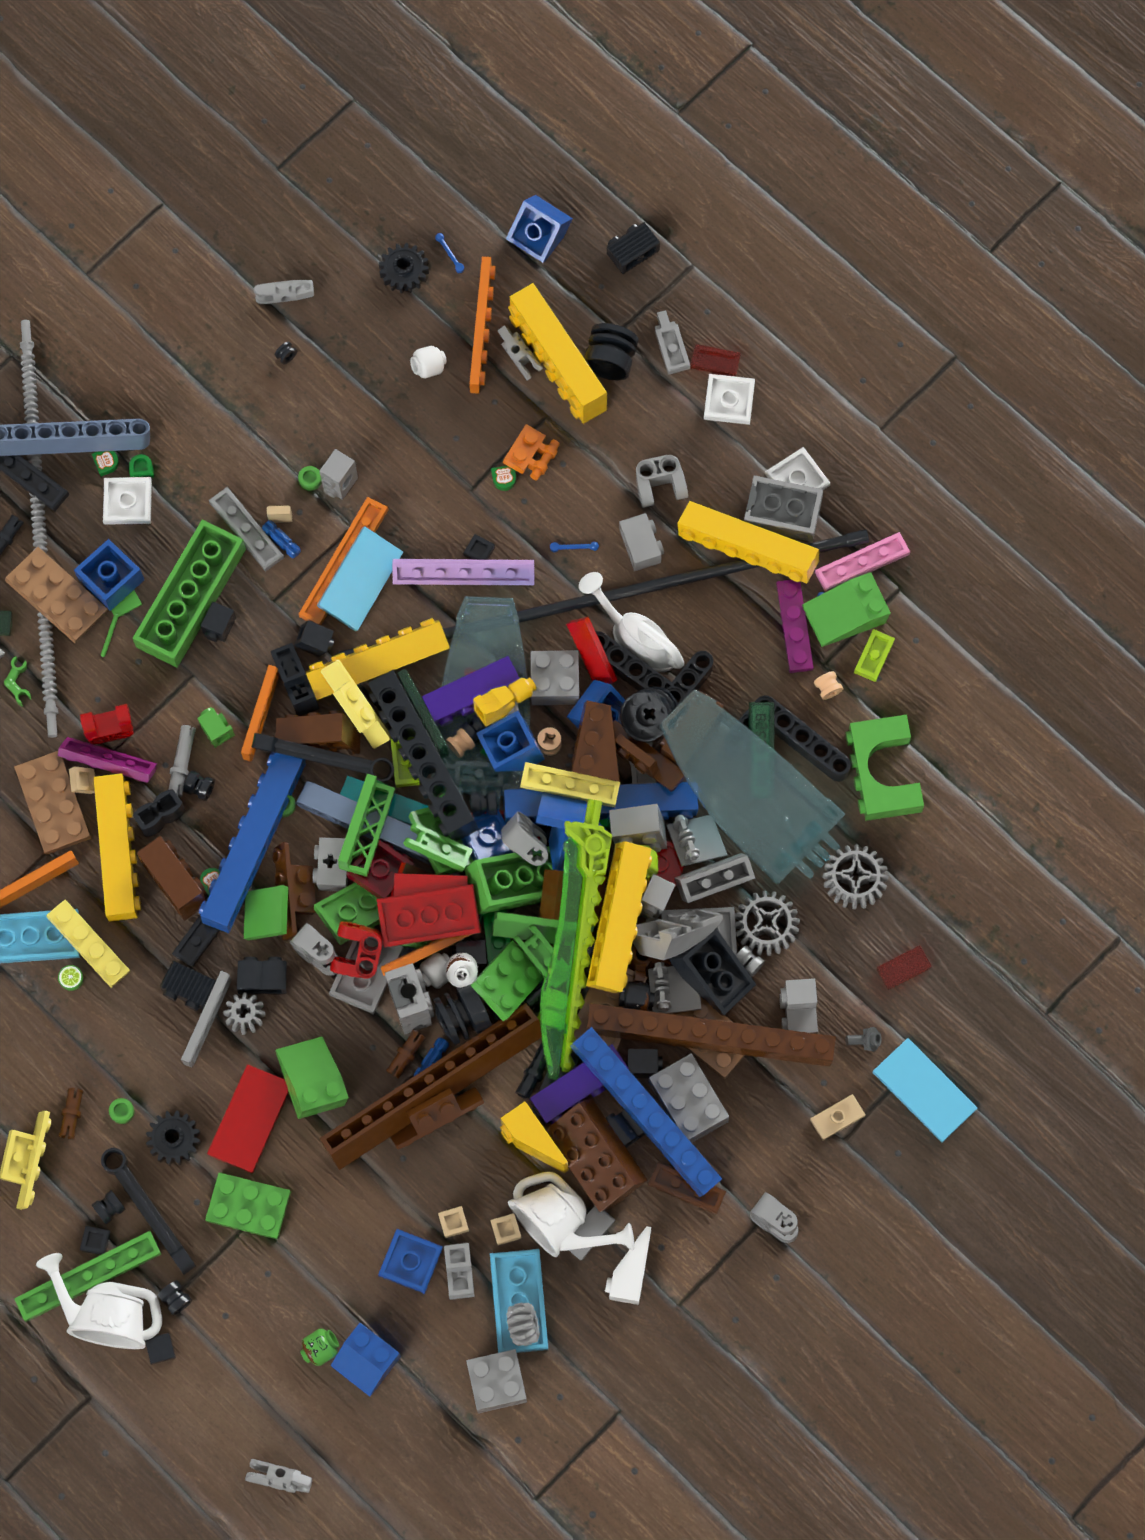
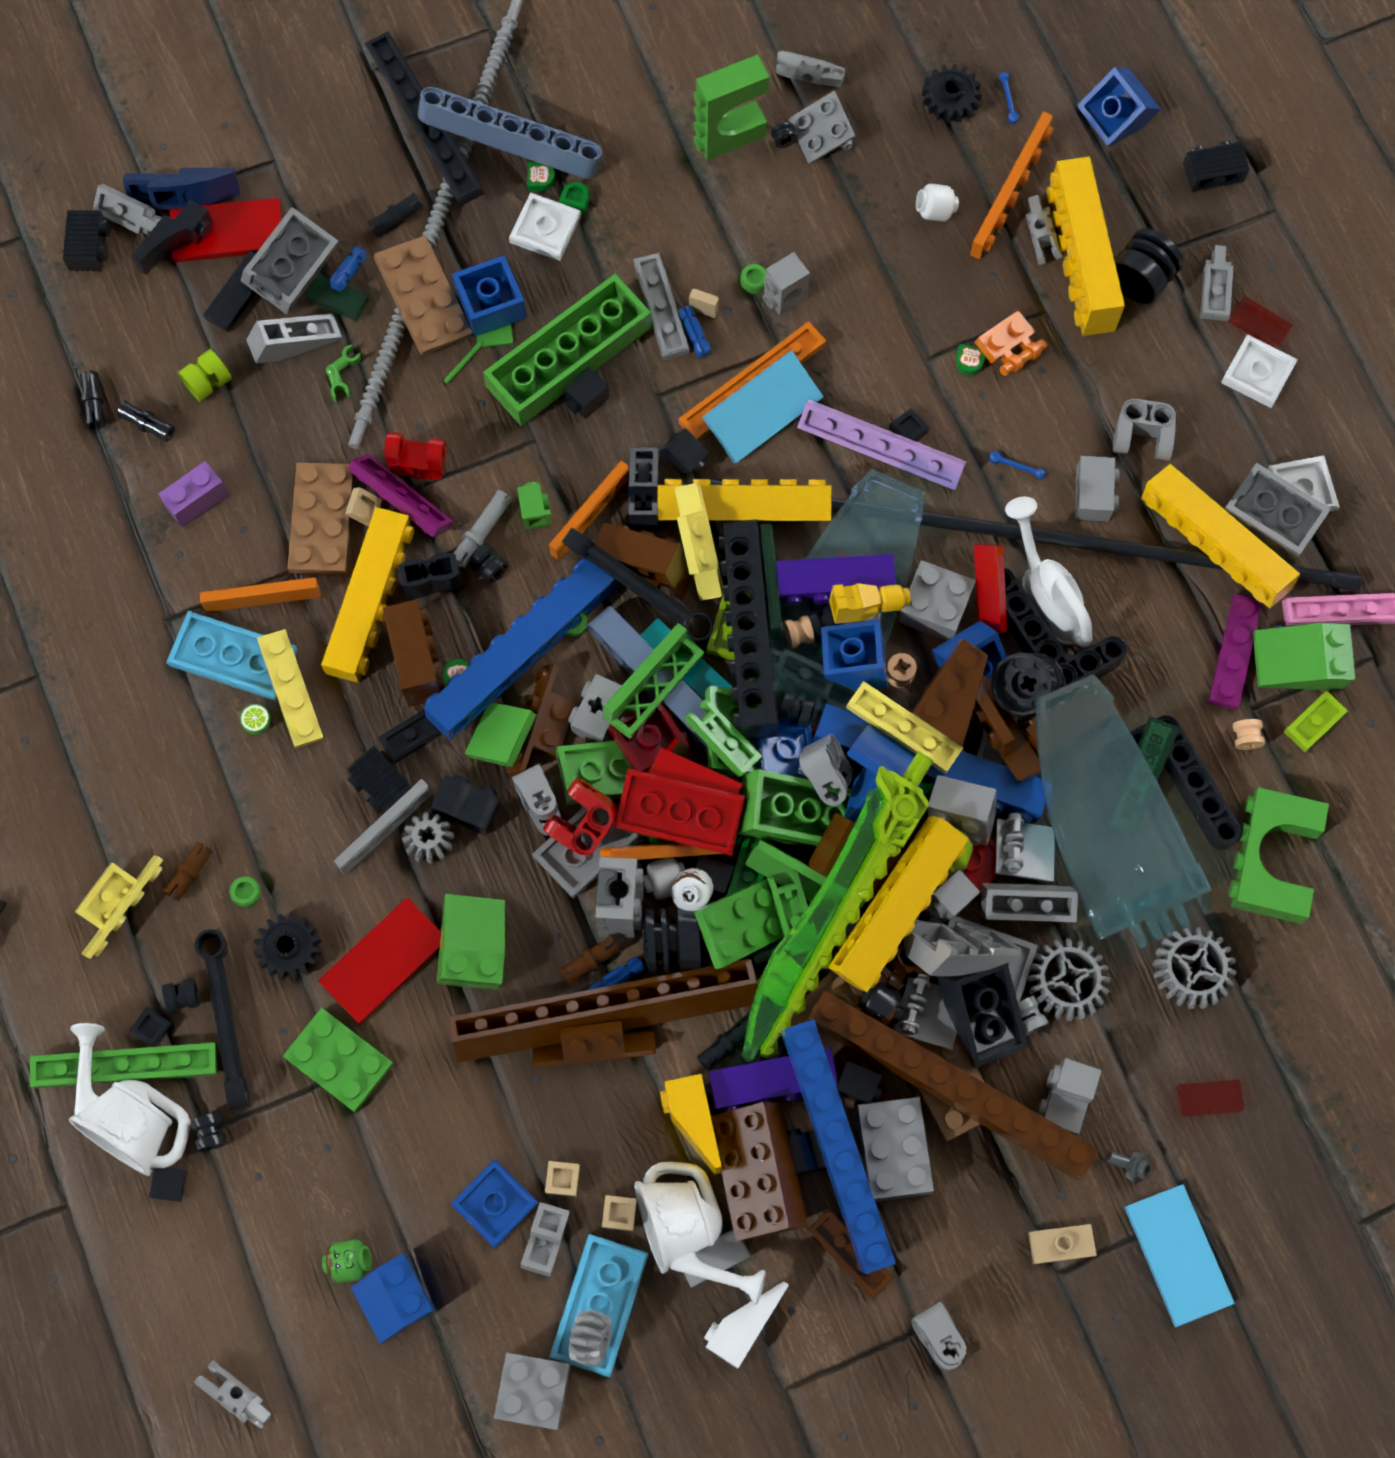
camera: 20 degrees right, 0 degrees up
(237, 352) = (720, 91): none -> bright green arch
(313, 335) = (823, 128): none -> light grey hinge

